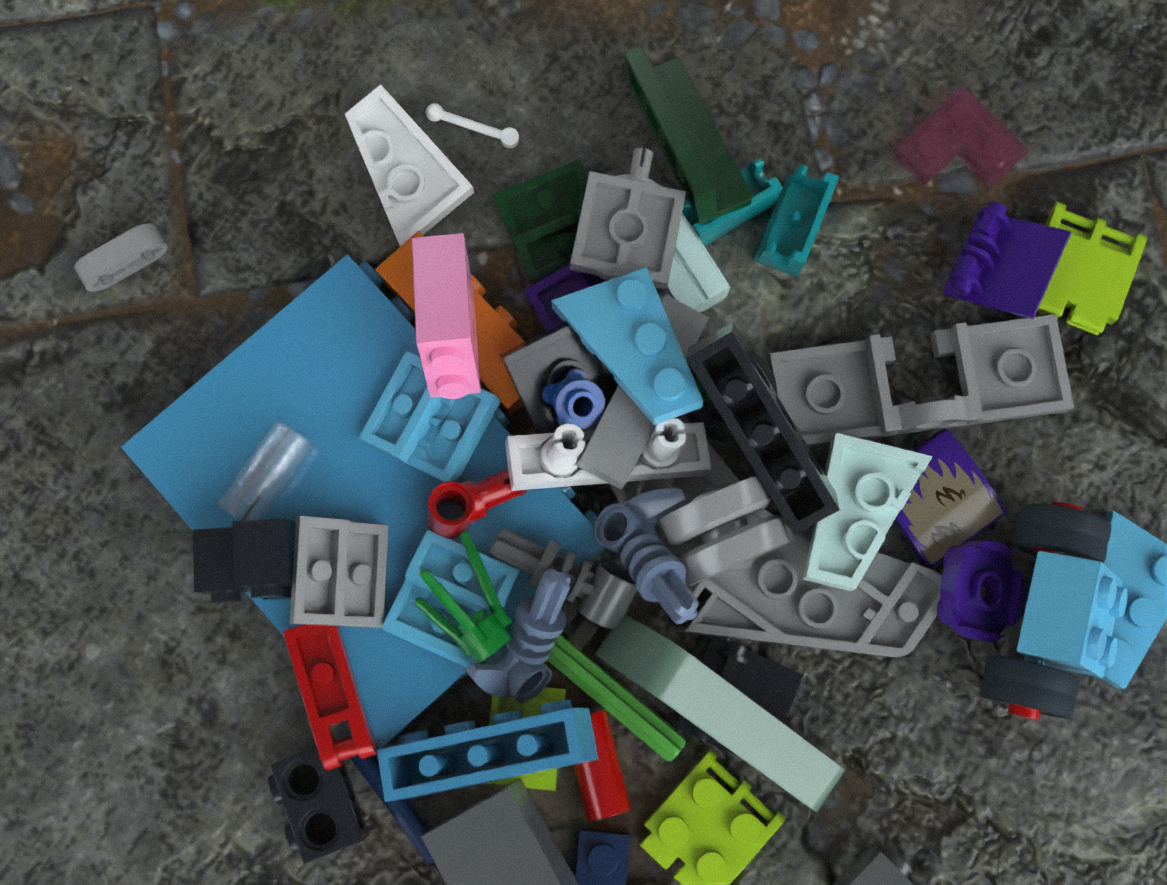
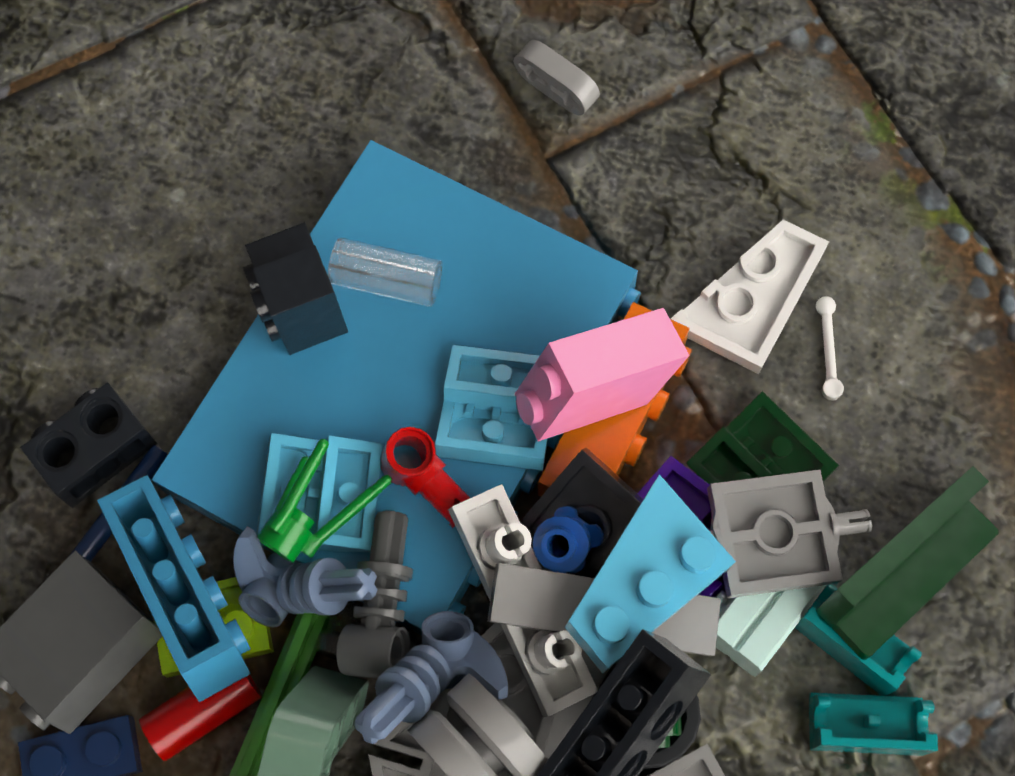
camera: 75 degrees right, 10 degrees down
(329, 692) = (190, 408): red plate -> none
(338, 573) = (305, 369): light grey slope -> none

